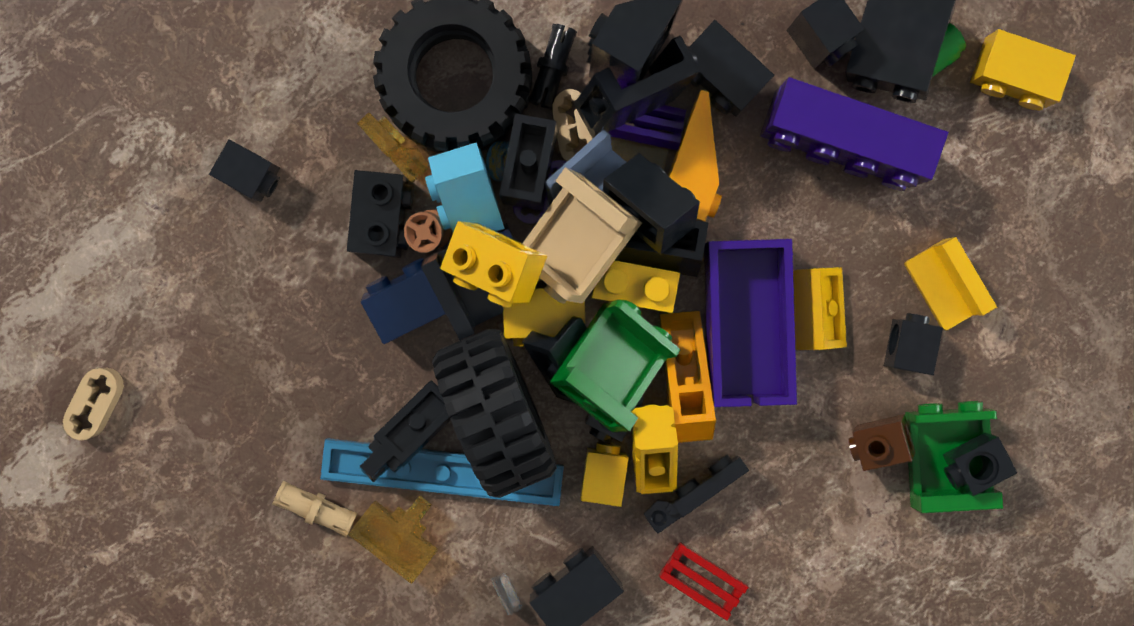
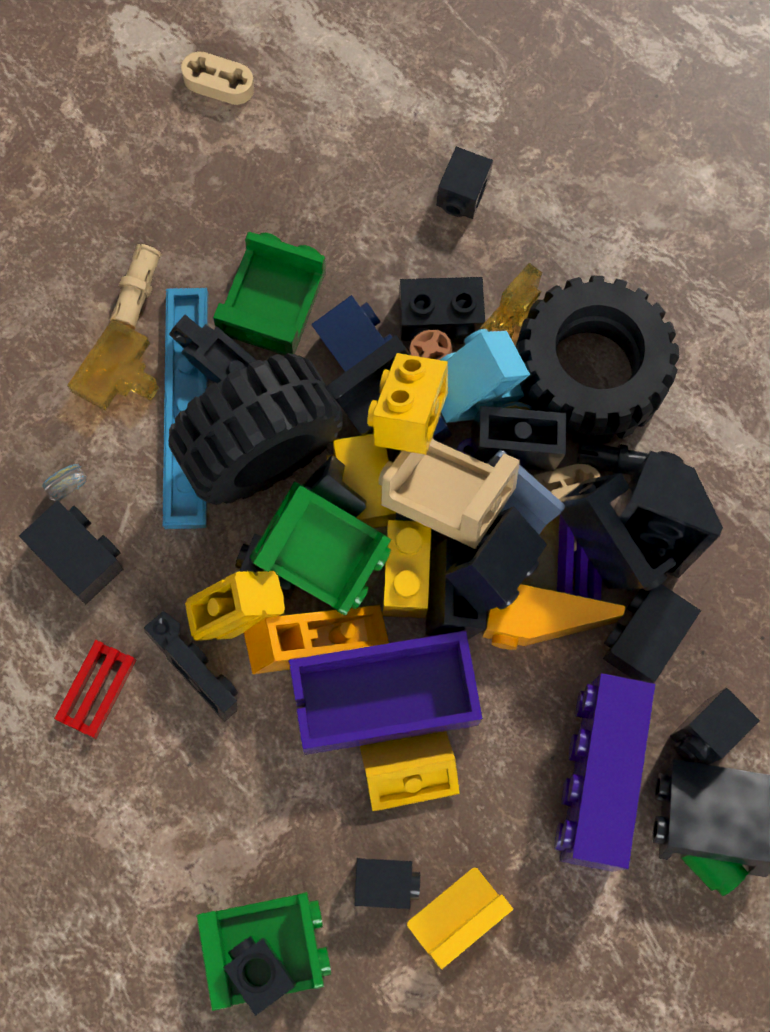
camera: 75 degrees right, 15 degrees down
(339, 377) = (272, 294): none -> green panel
(604, 475) = (200, 561): yellow brick -> none
(882, 443) = (270, 863): reddish brown brick -> none
(1022, 70) = (712, 966): yellow brick -> none

